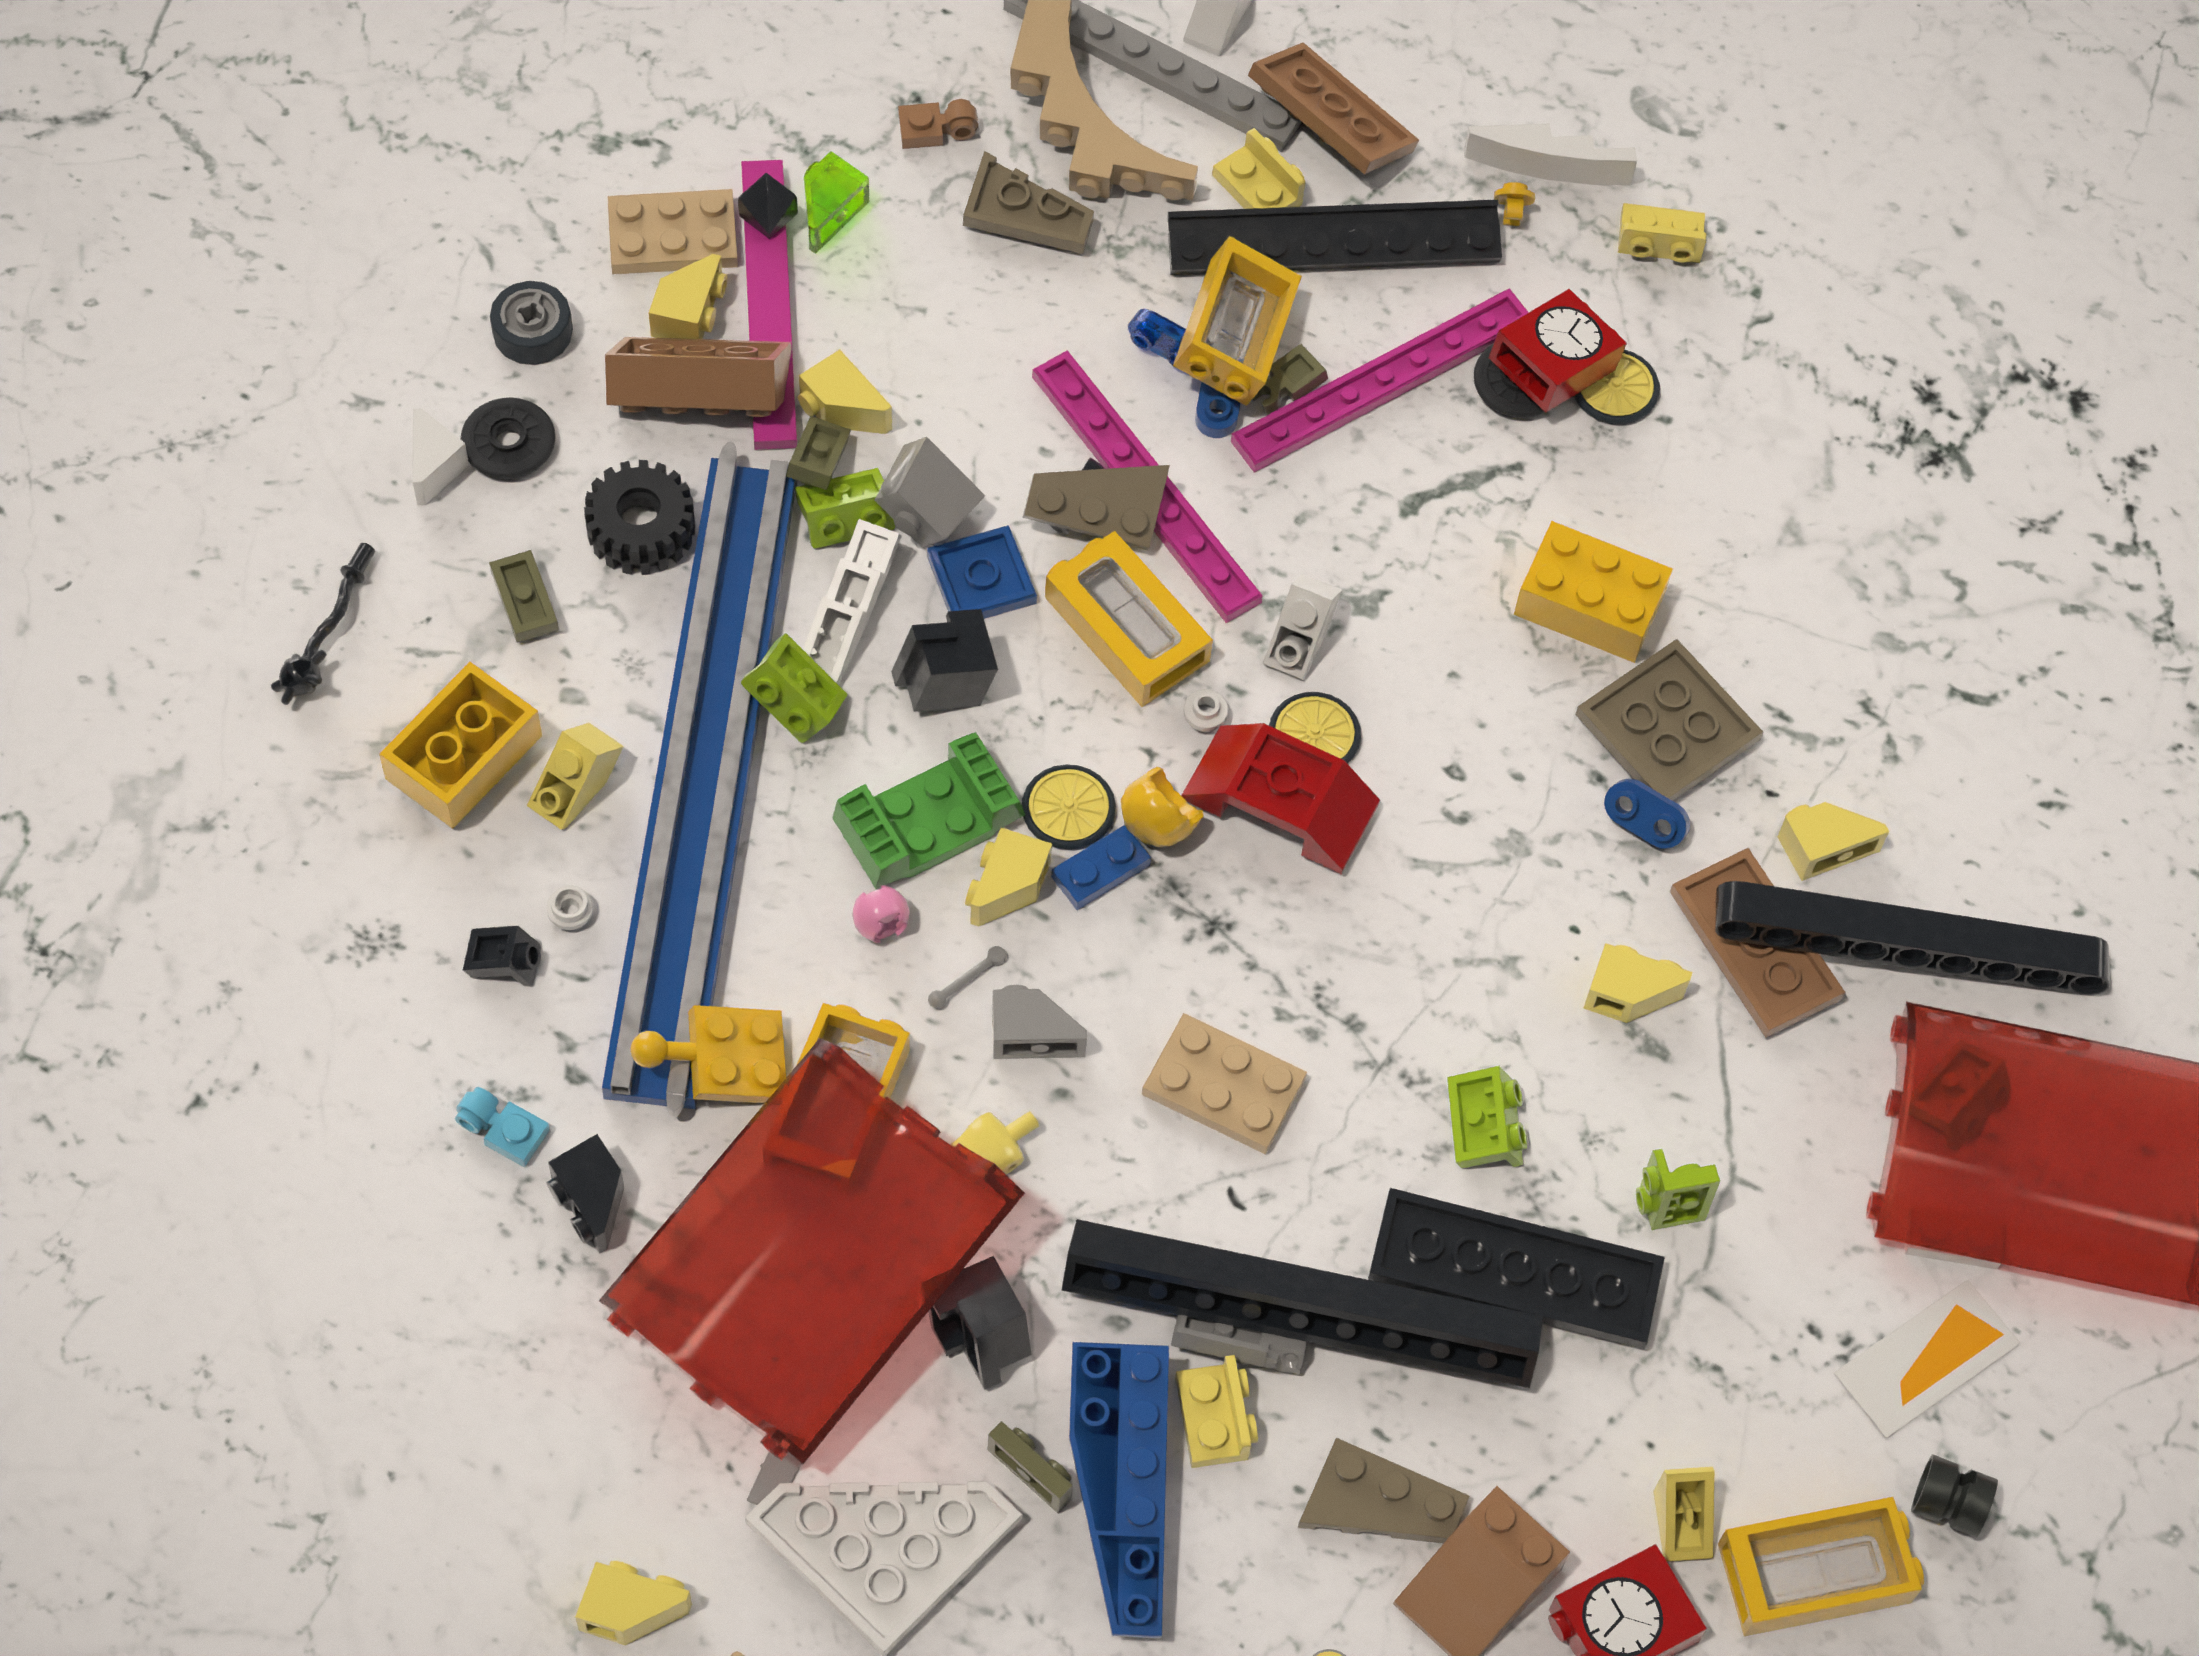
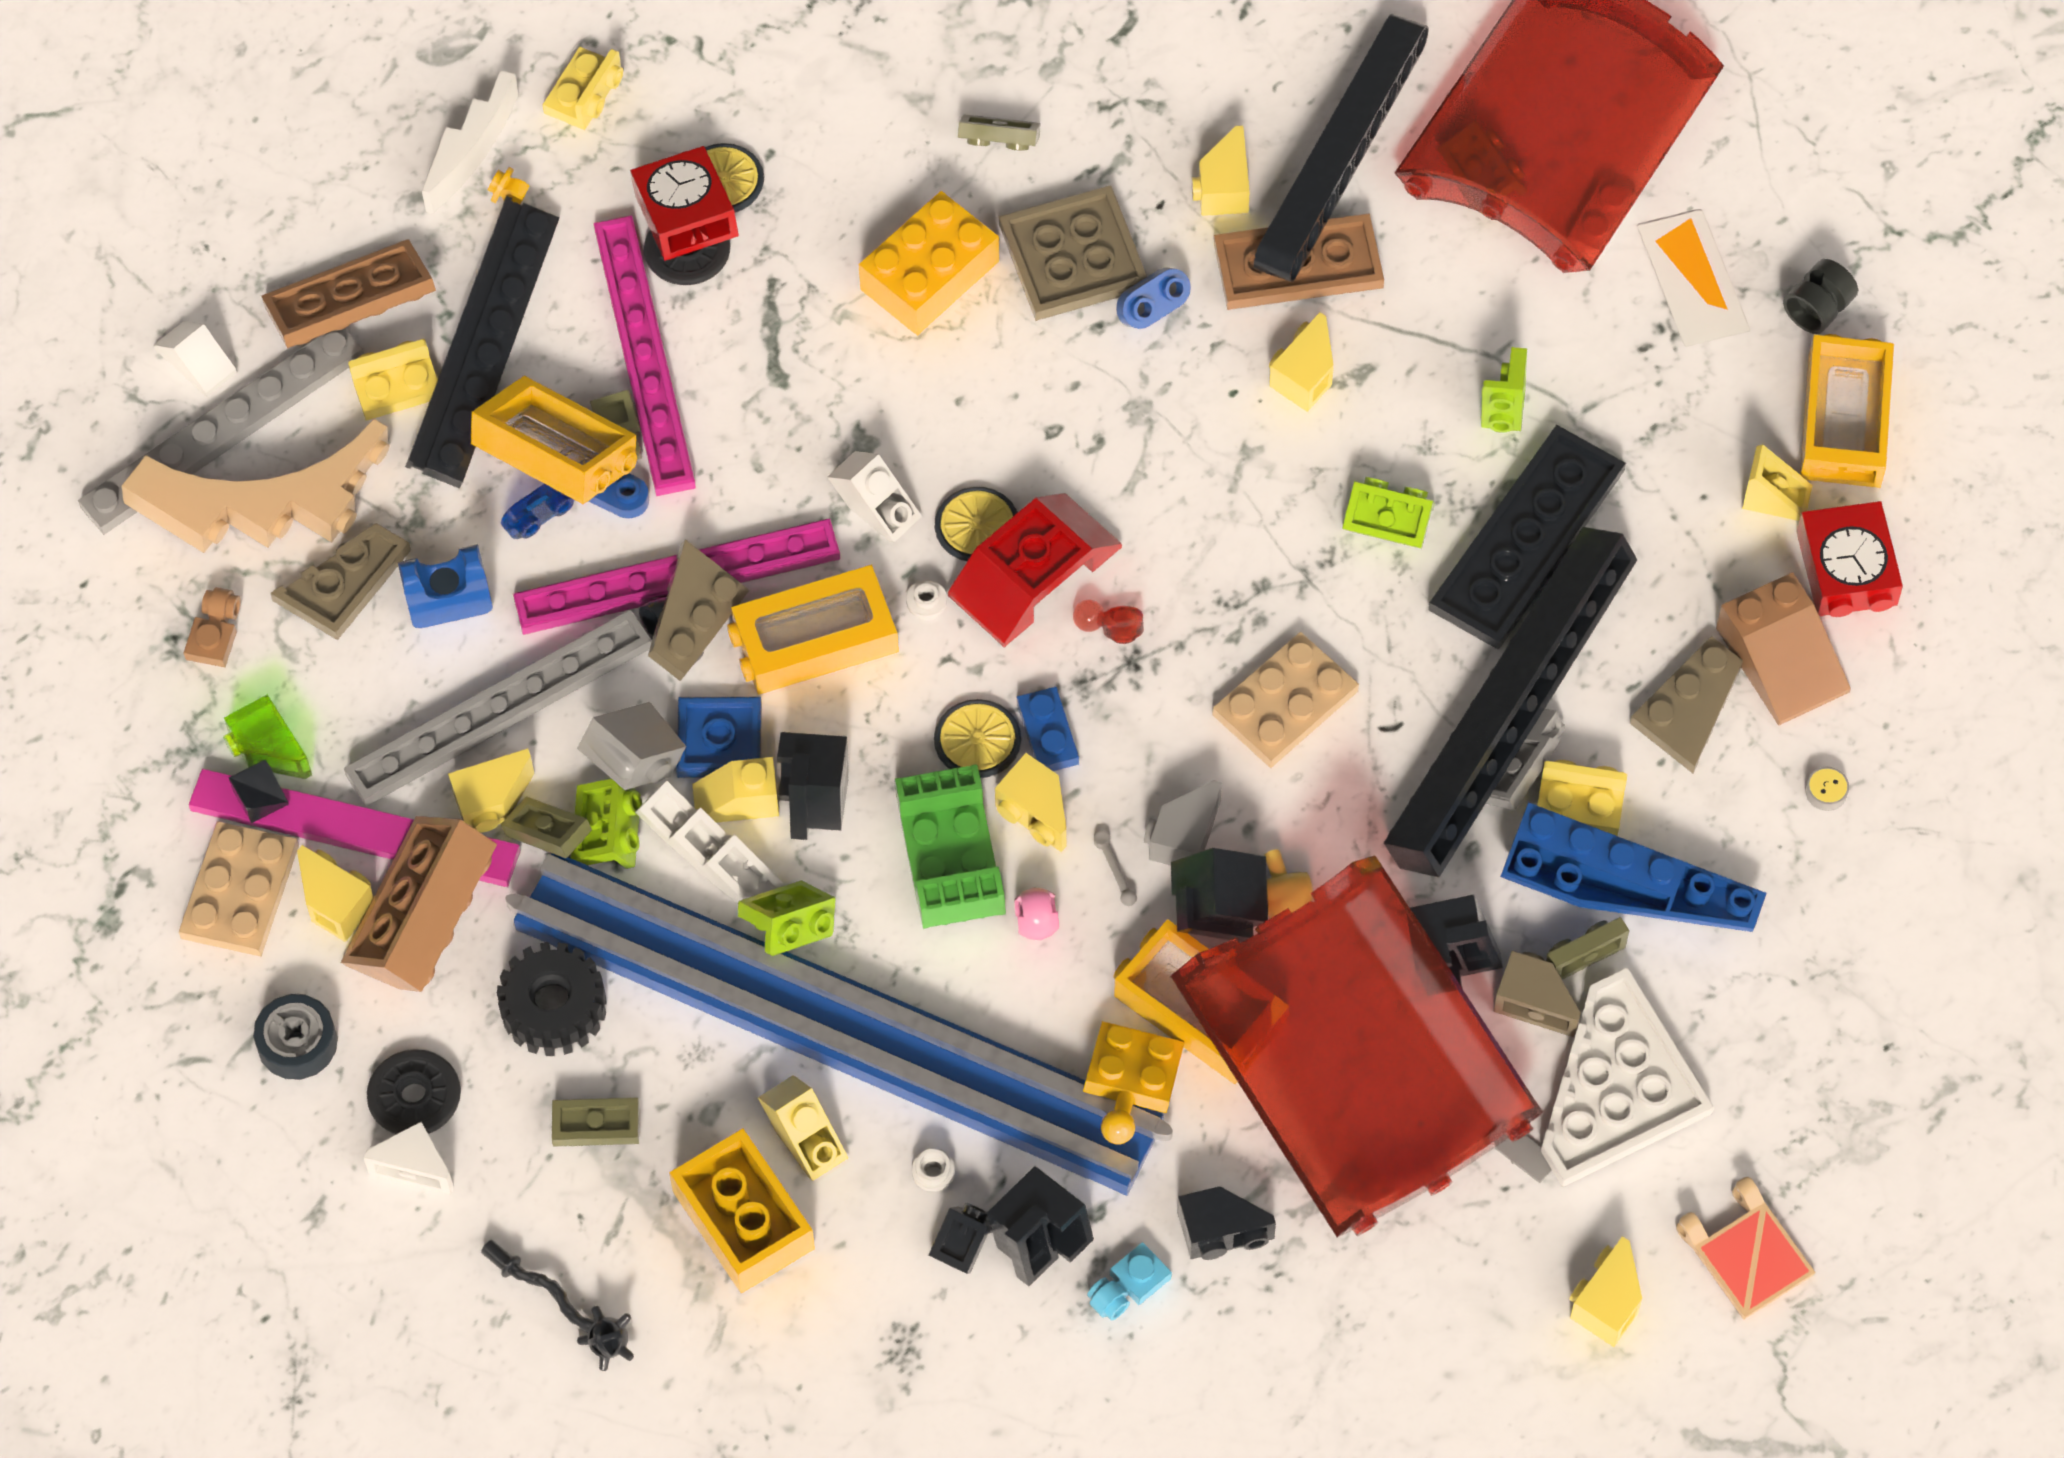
camera: 65 degrees left, 0 degrees up
(524, 1012) = (1038, 1223): none -> black plate
(917, 599) = (739, 791): none -> light yellow slope
(937, 376) = (498, 708): none -> light grey plate
(951, 1072) = (1220, 893): none -> black plate
(961, 1426) = (1536, 994): none -> dark tan slope
(1040, 282) = (446, 589): none -> piece
(1157, 811) = (1021, 664): yellow hair -> none
(1246, 894) = (1119, 623): none -> clear red plate
(1784, 615) = (1015, 133): none -> plate

